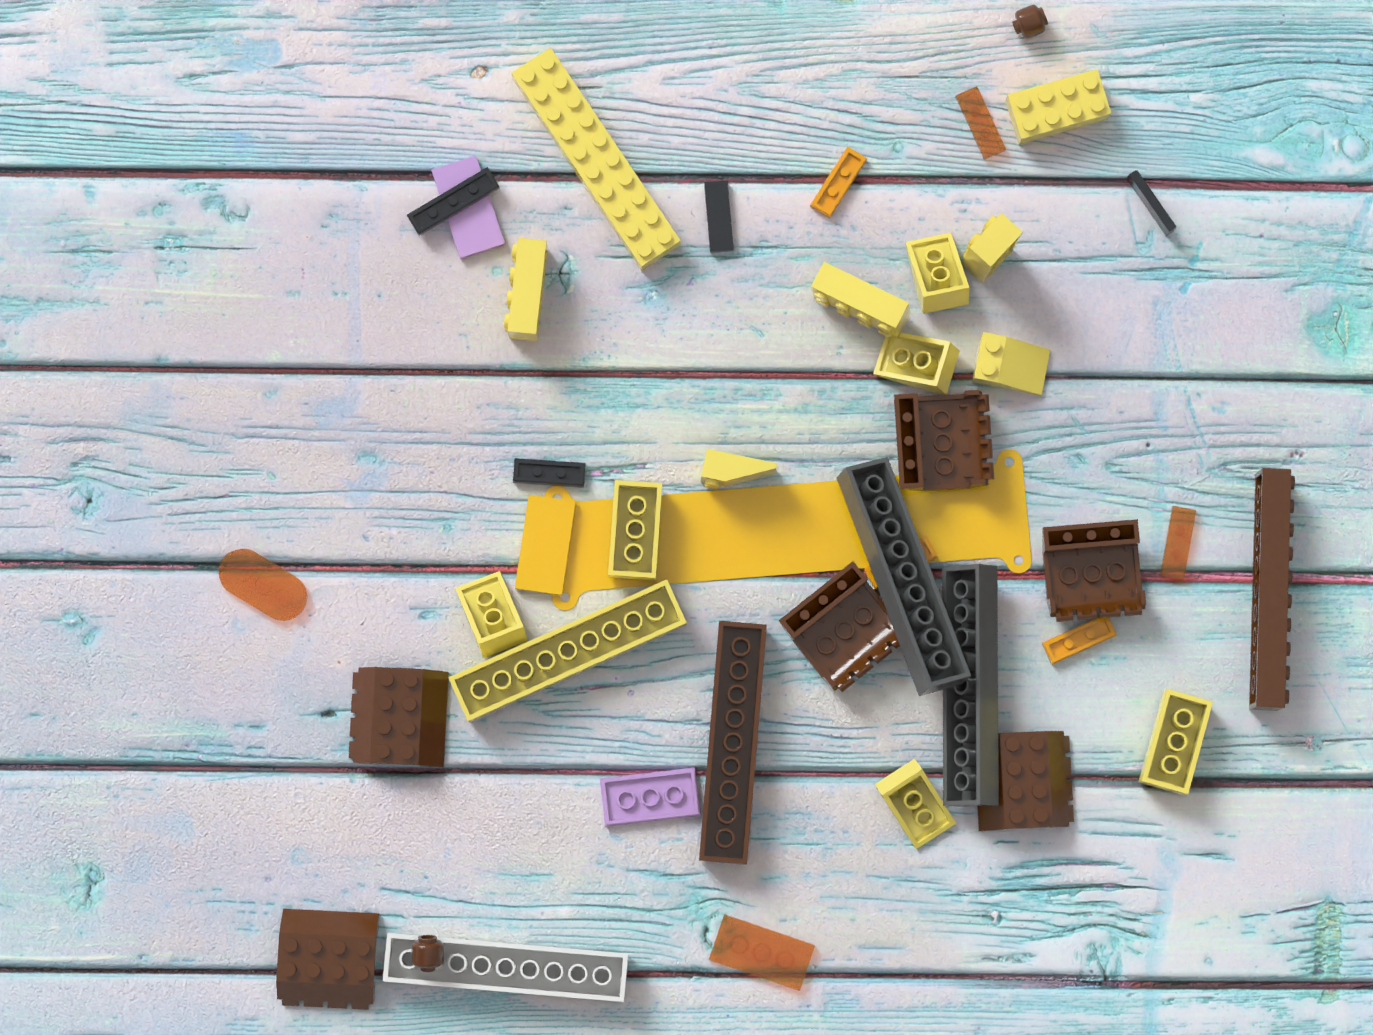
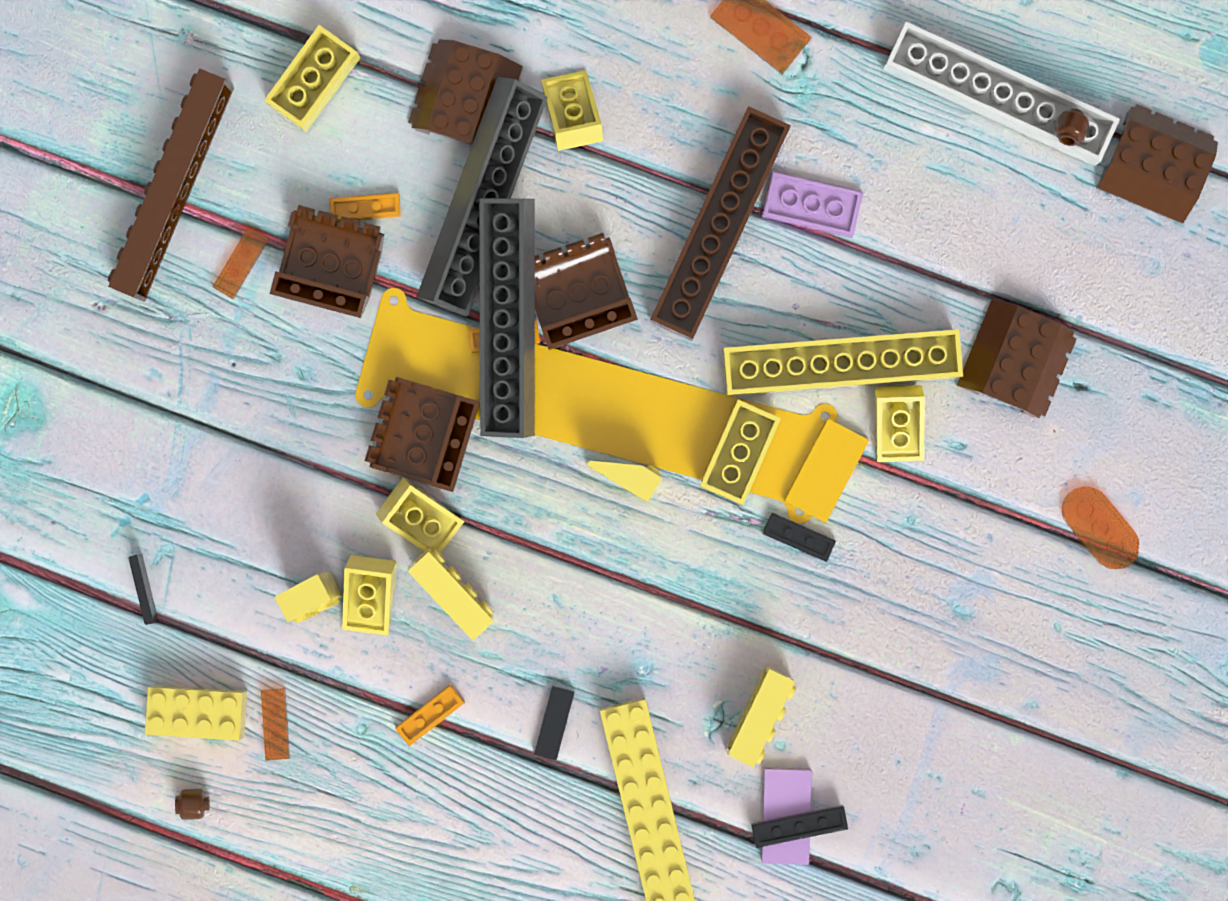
camera: 155 degrees left, 5 degrees up
(1010, 364) = (332, 484): light yellow slope -> none

